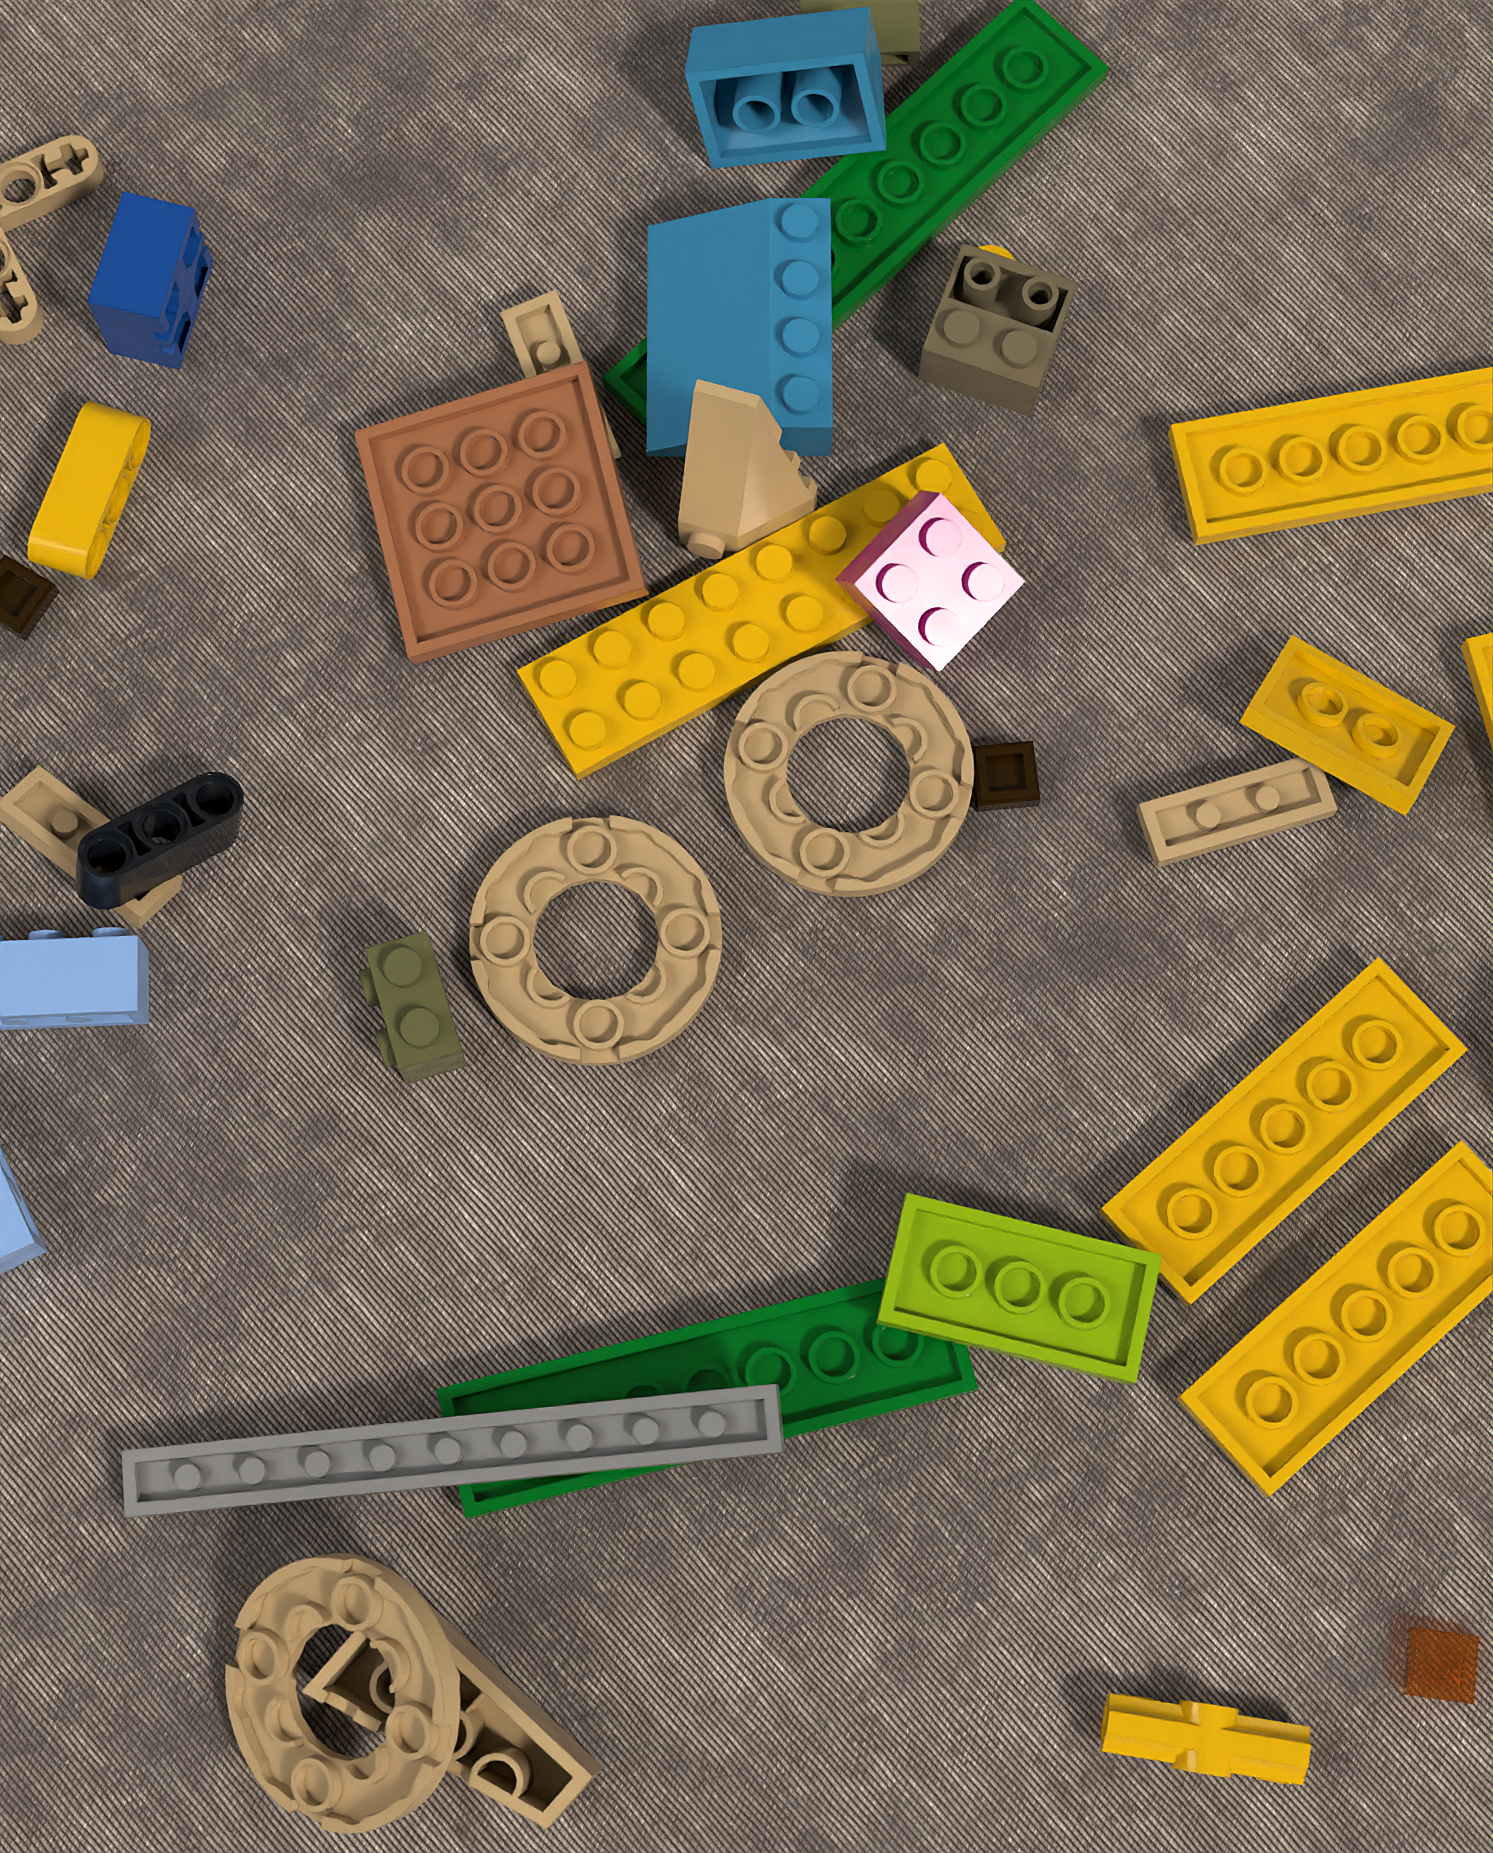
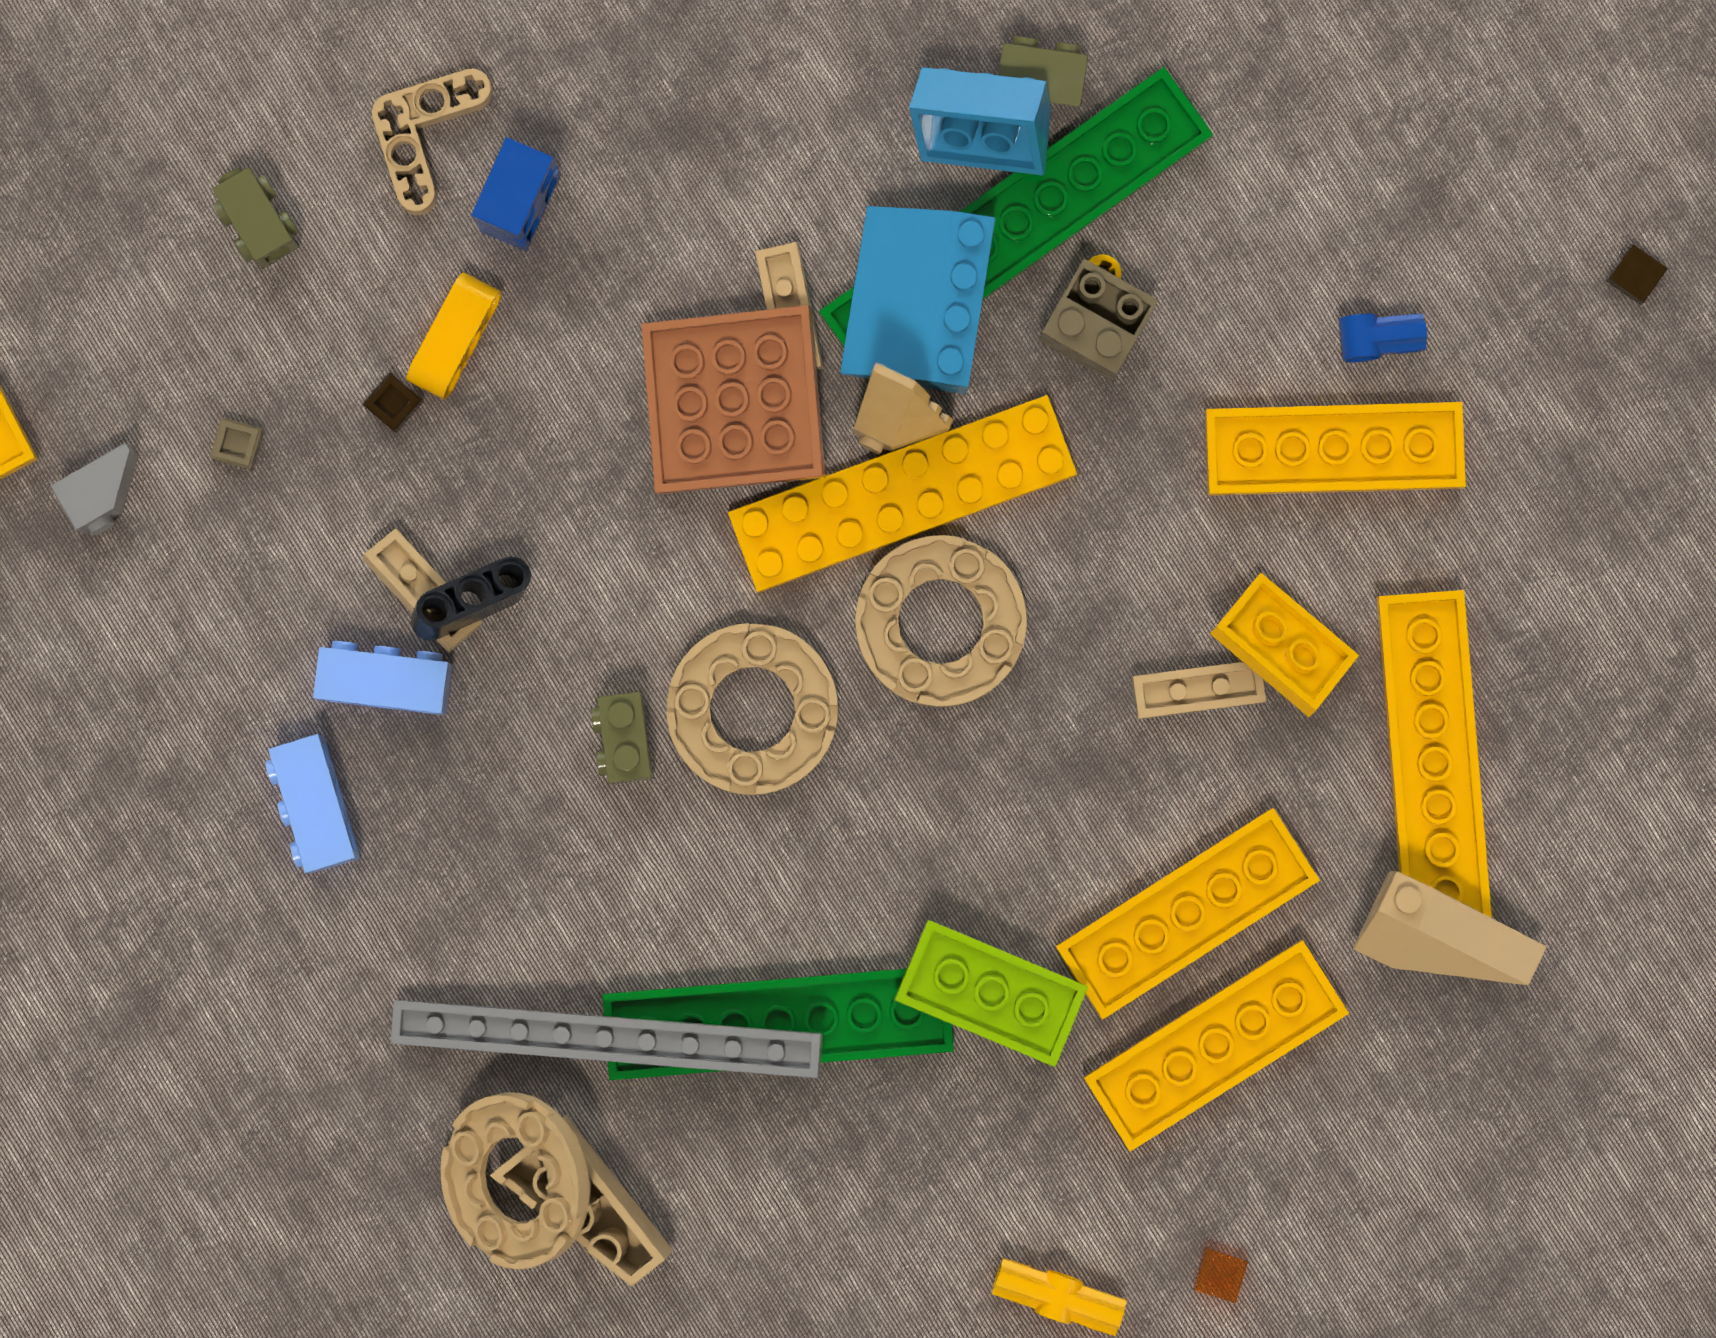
camera: 10 degrees right, 10 degrees up
(930, 580) = (1017, 500): brick -> none
(1005, 776) = (1047, 638): dark brown tile -> none
(1378, 298) = (1368, 336): none -> blue piece

